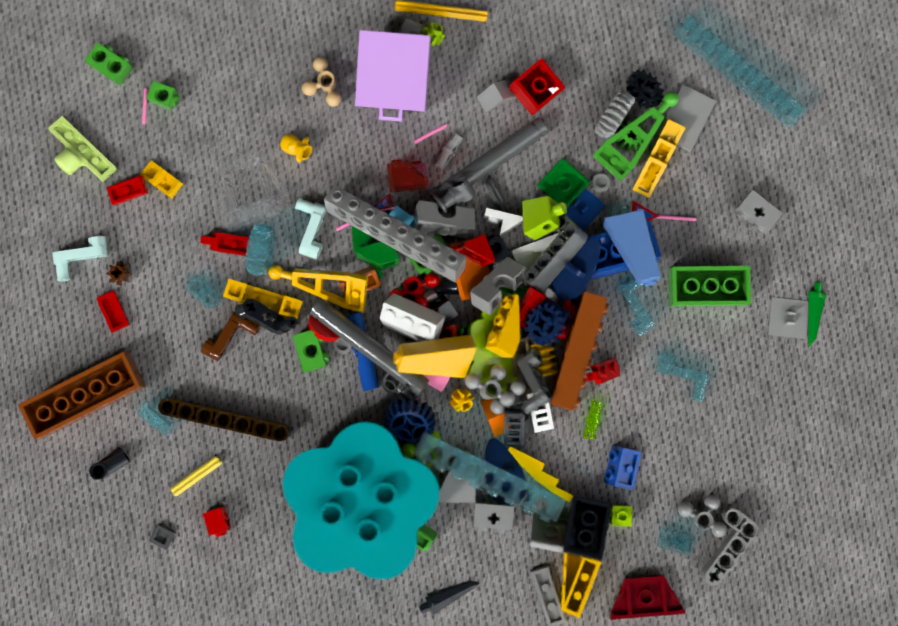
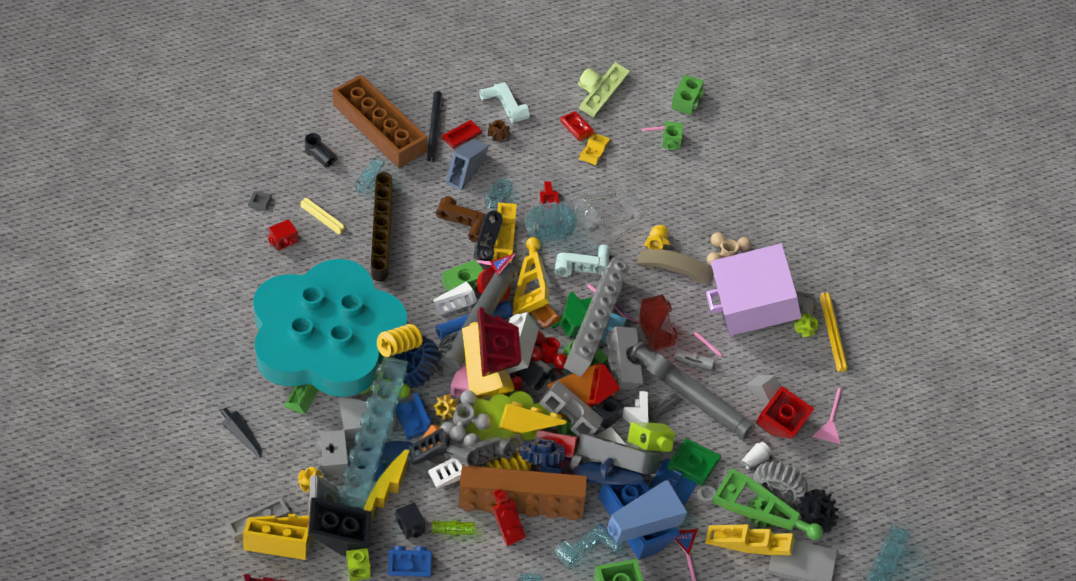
camera: 70 degrees right, 35 degrees down
(96, 338) = (434, 126): none -> black piece
(158, 316) = (465, 163): none -> sand blue slope
(313, 314) = (498, 264): none -> piece
(330, 139) = (676, 262): none -> dark tan slope
(335, 364) = (466, 299): none -> white slope
(400, 437) = (399, 340): none -> yellow piece
(432, 343) = (498, 343): none -> dark red wing
(465, 433) = (414, 417): none -> blue bracket
(519, 542) = (304, 478): none -> yellow gear
(552, 51) = (828, 431): none -> bright pink piece
(569, 125) = (757, 455): none -> white cone
(582, 458) = (410, 521): none -> black brick

